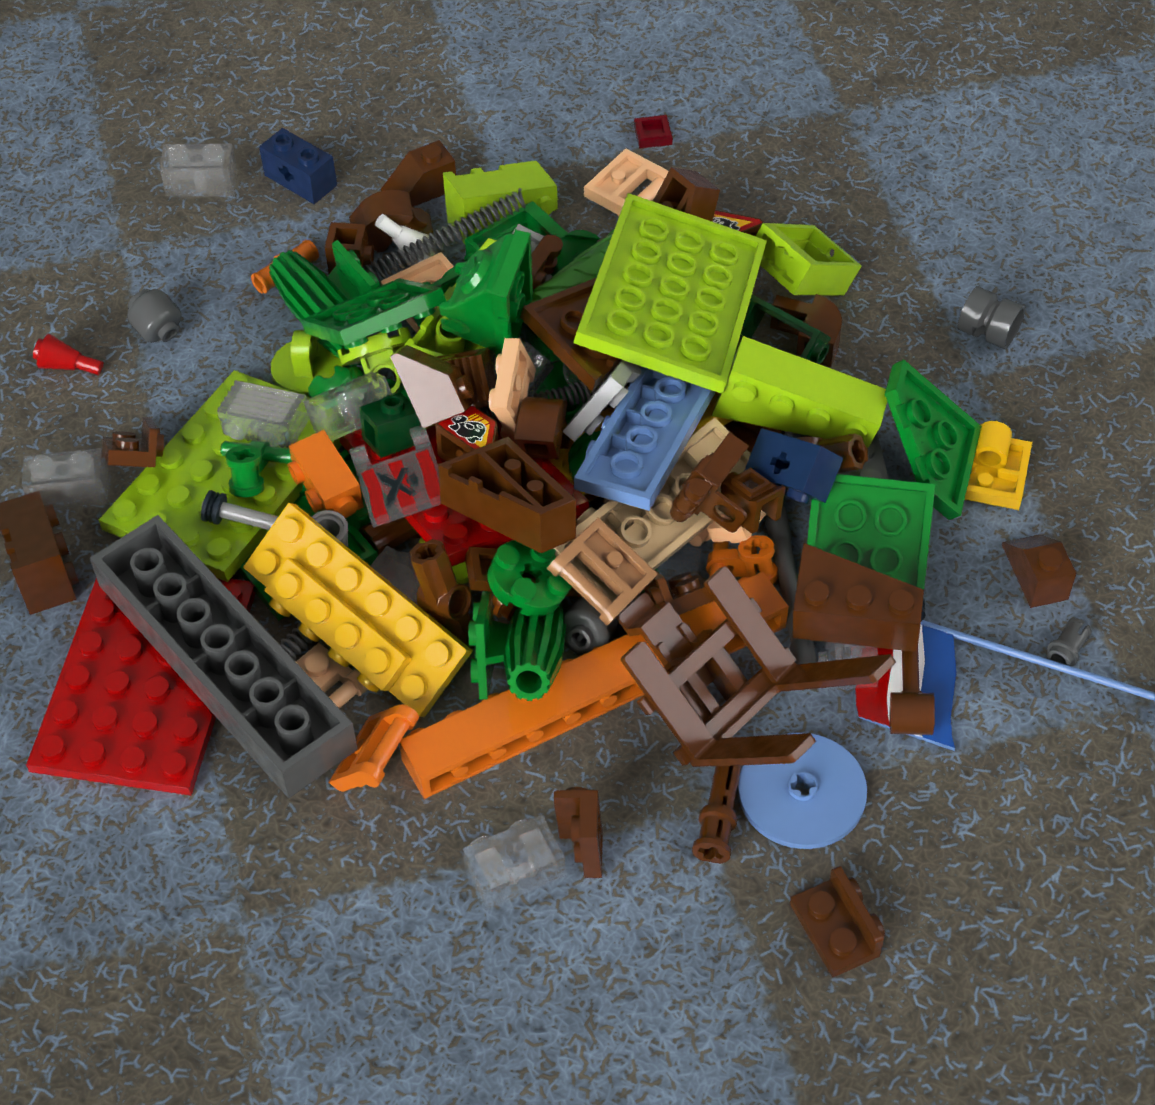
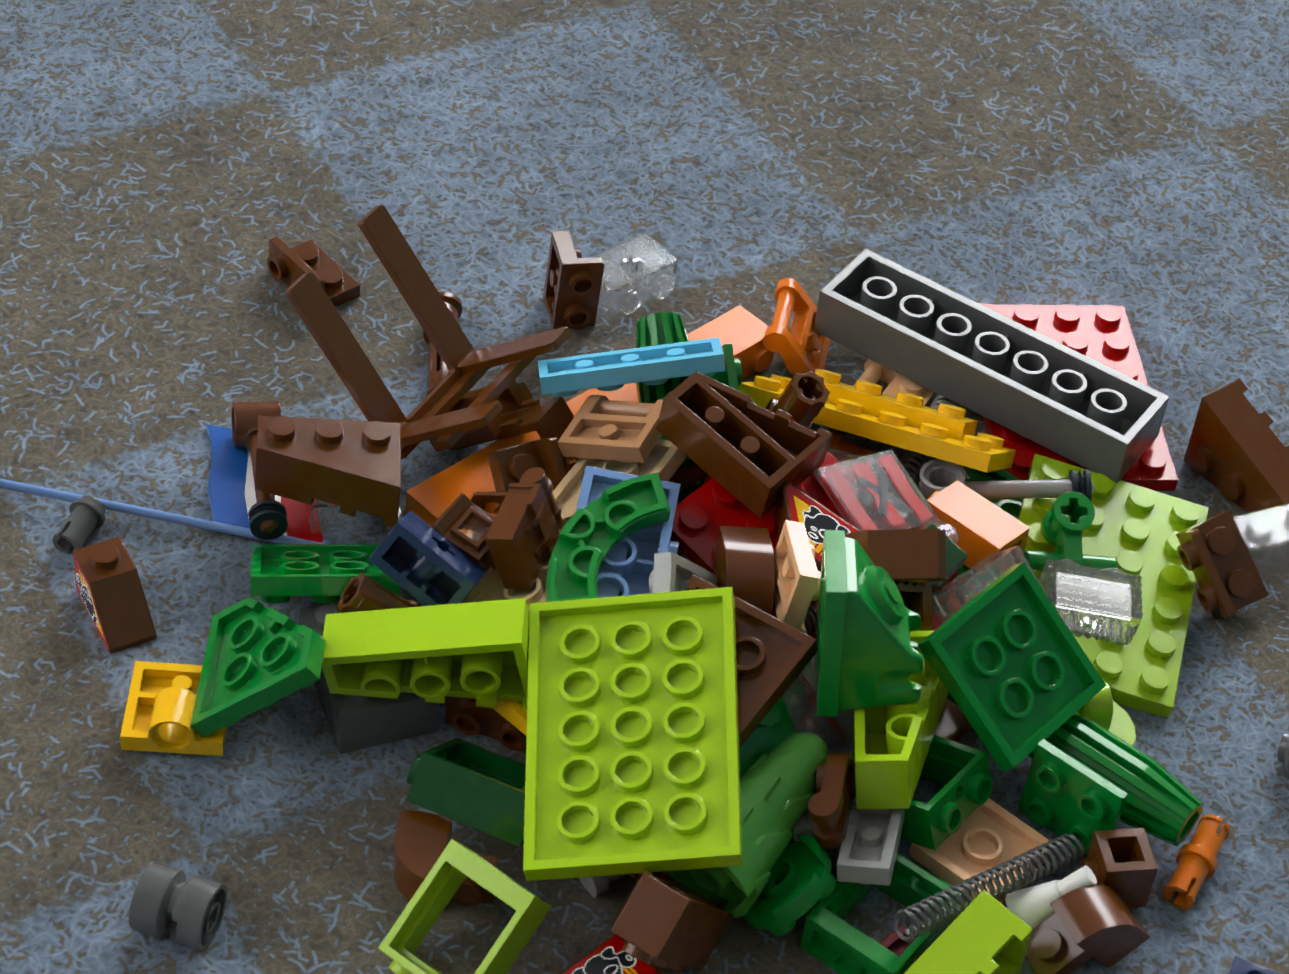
camera: 160 degrees right, 10 degrees down
(573, 618) = (615, 368): none -> medium azure plate
(667, 438) = (597, 530): none -> green tile
(808, 821) = (393, 356): medium blue piece -> none

